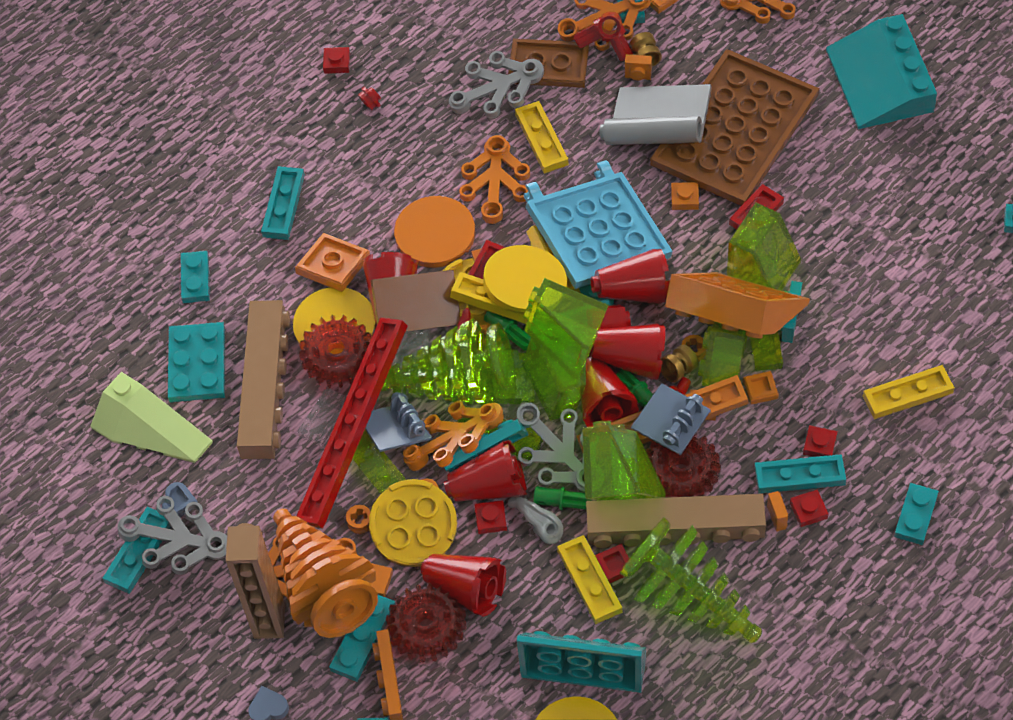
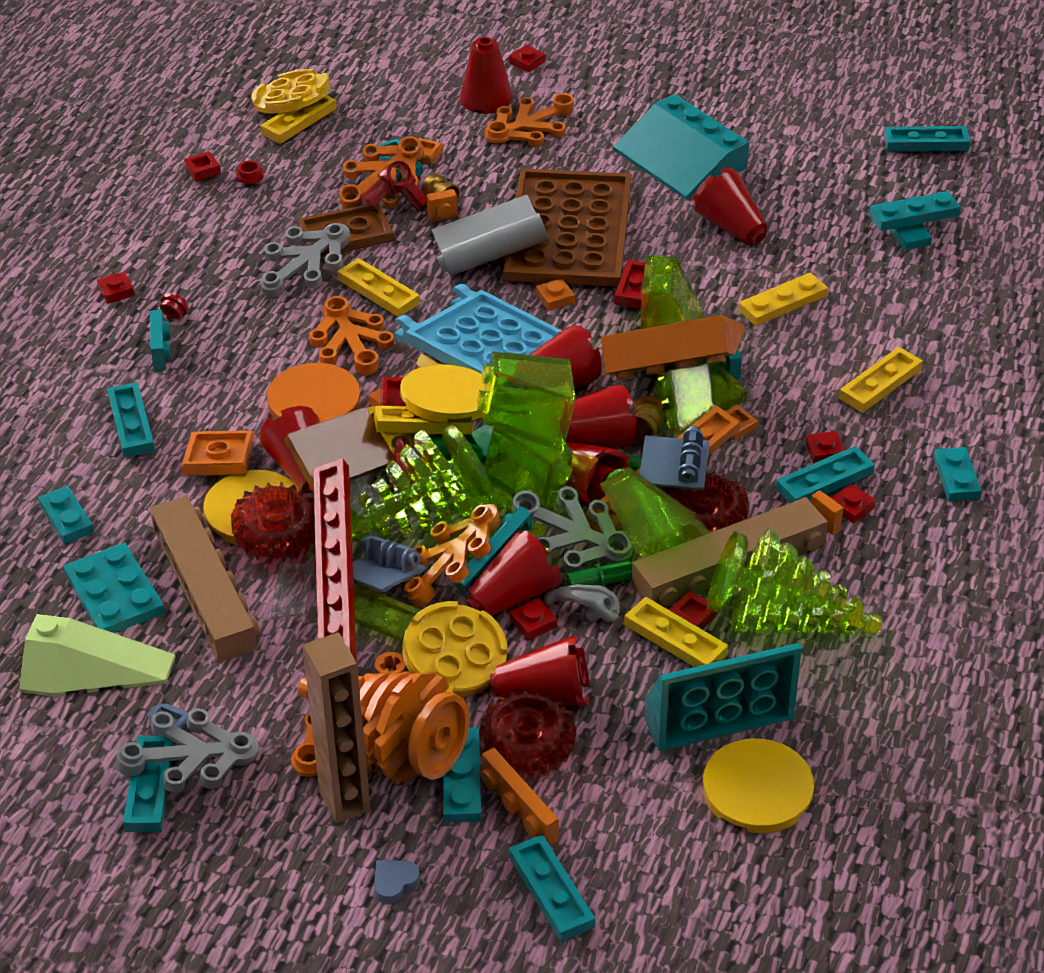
camera: 30 degrees left, 15 degrees down
(338, 135) = (159, 347): none -> teal plate
(877, 272) = (783, 299): none -> yellow plate
(883, 159) = (730, 206): none -> red cone

